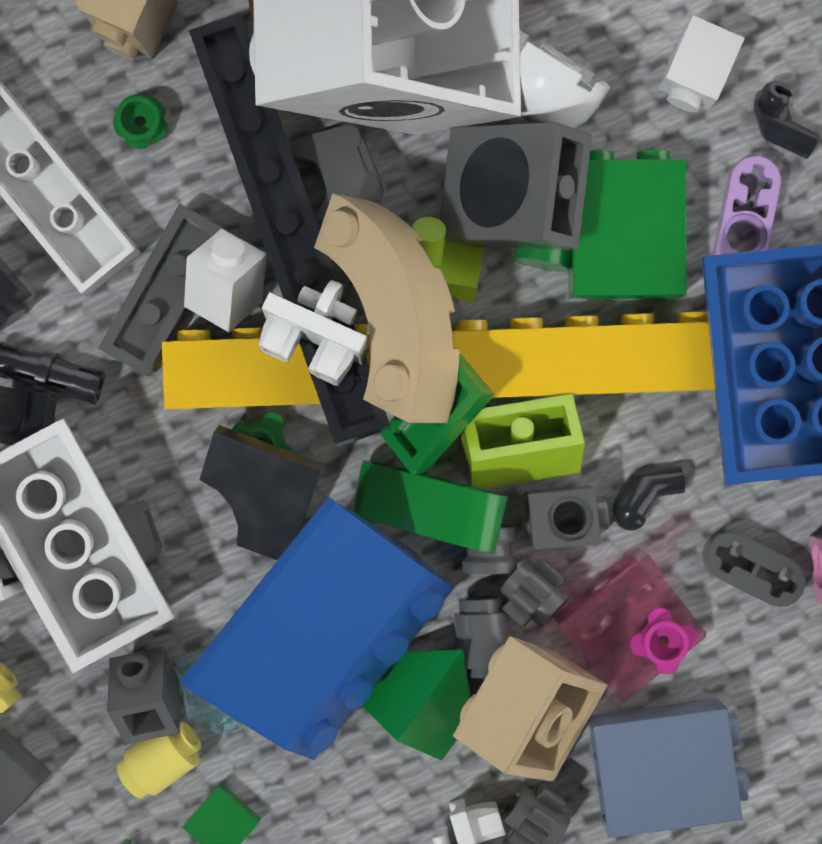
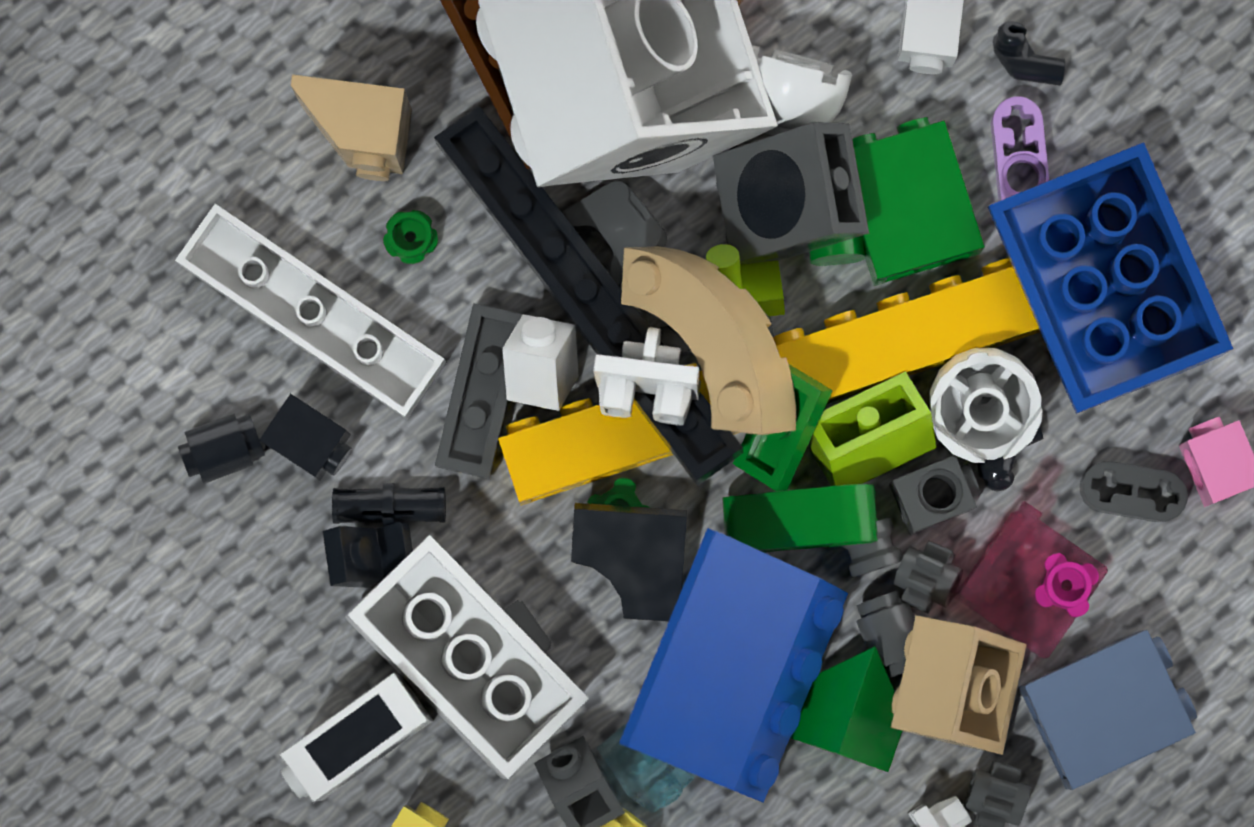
camera: 20 degrees left, 5 degrees down
(639, 448) = (986, 426): none -> white cylinder

